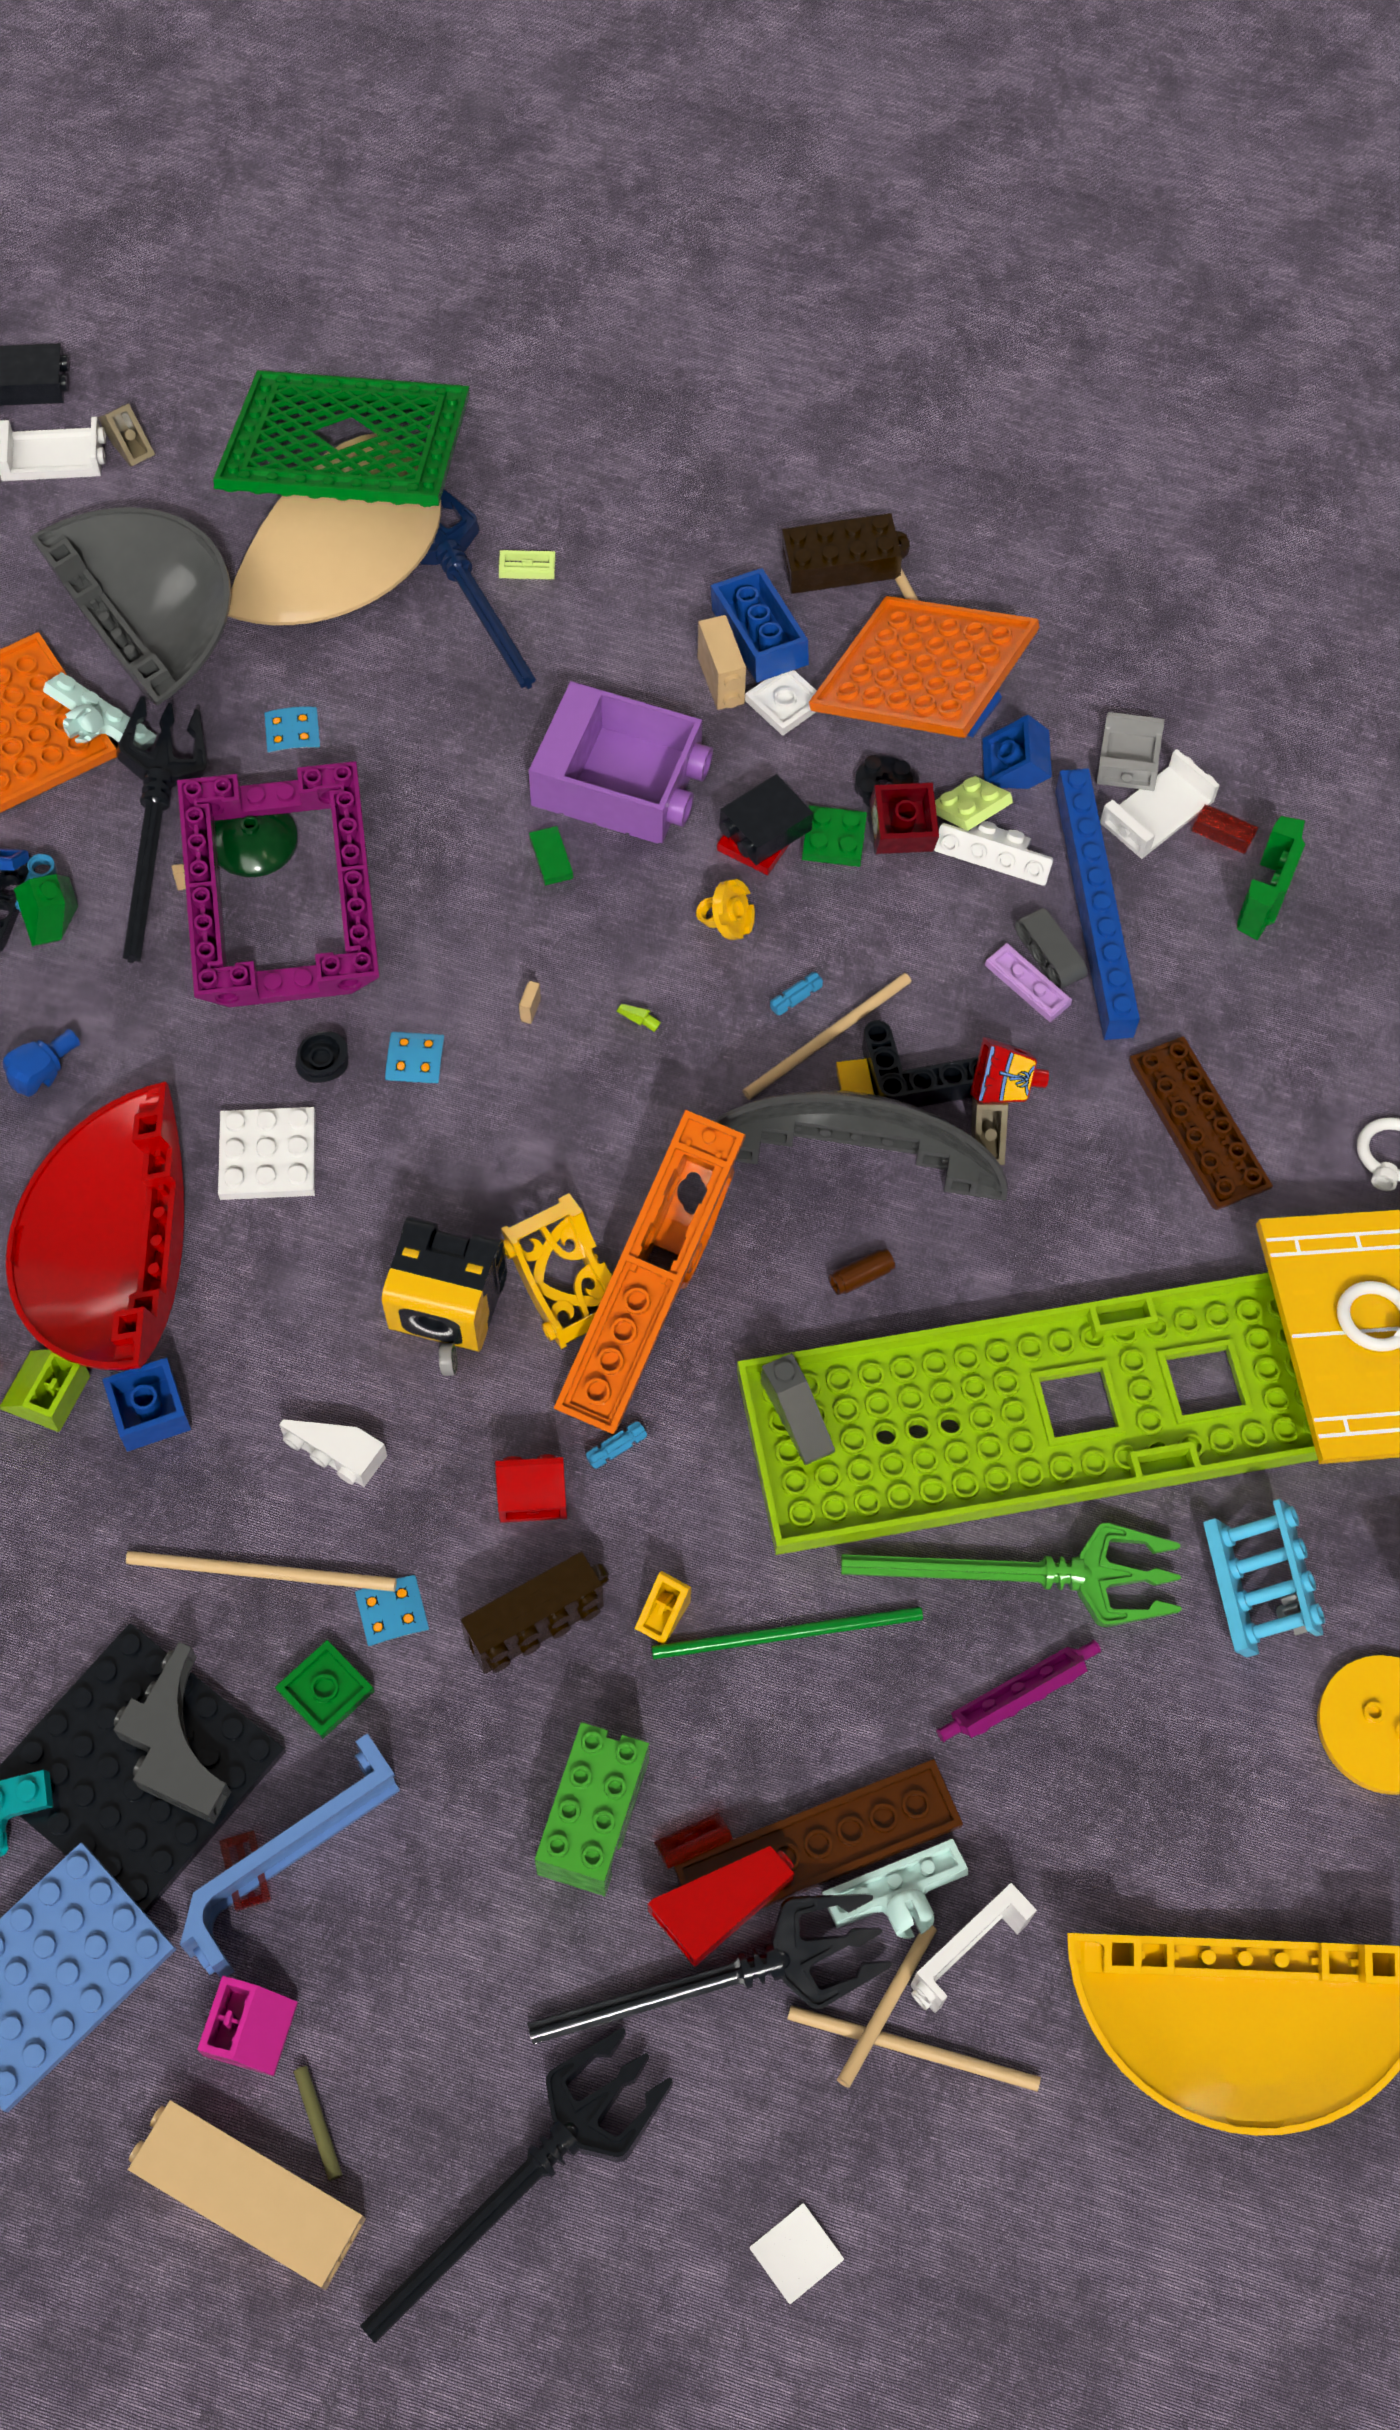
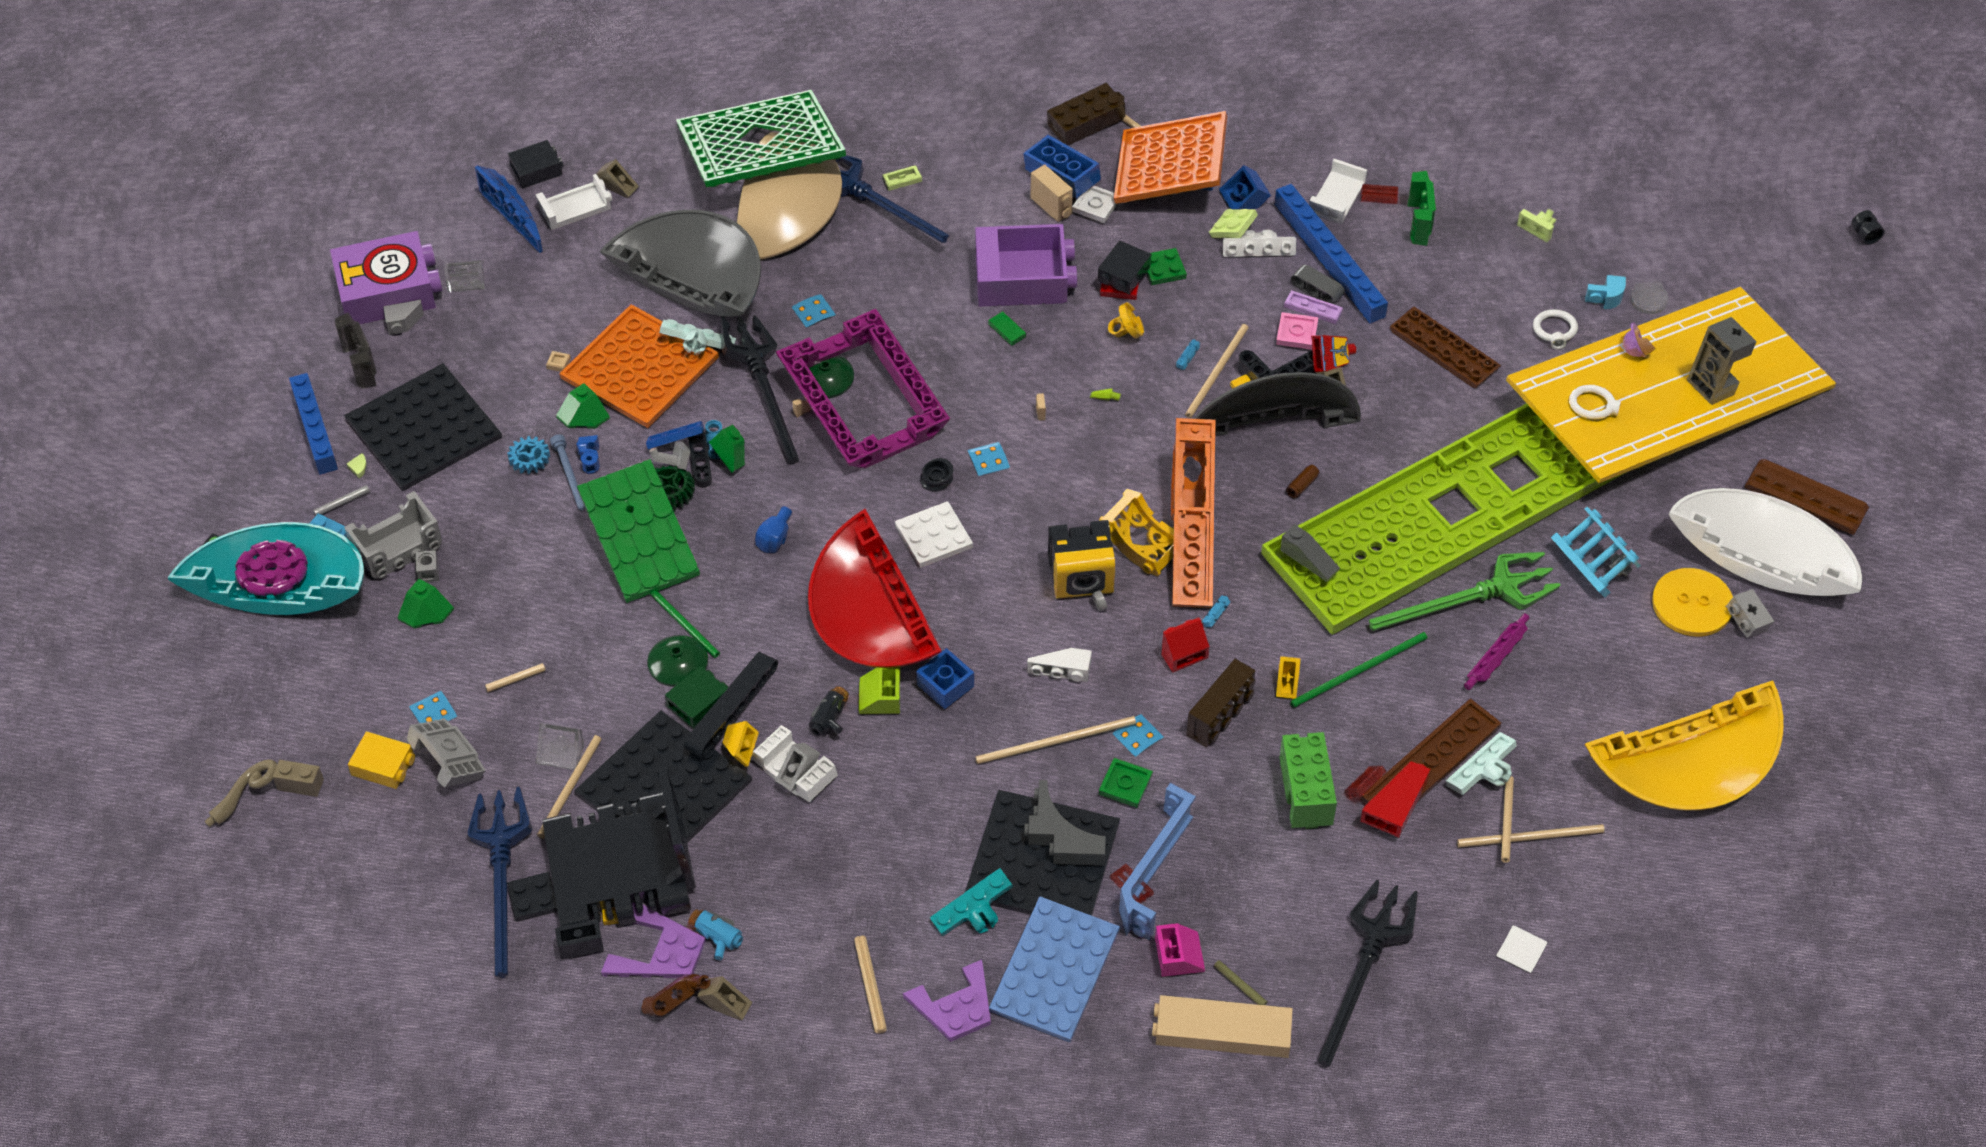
camera: 20 degrees left, 10 degrees down
(785, 1958) = (1444, 815): black piece -> none
(877, 769) = (1171, 222): black plate -> none
(904, 818) = (1201, 242): dark red brick -> none
(981, 1012) = (1296, 330): none -> bright pink plate
(1008, 1905) = (1546, 752): white panel -> none
(1130, 751) = (1307, 169): light grey panel -> none

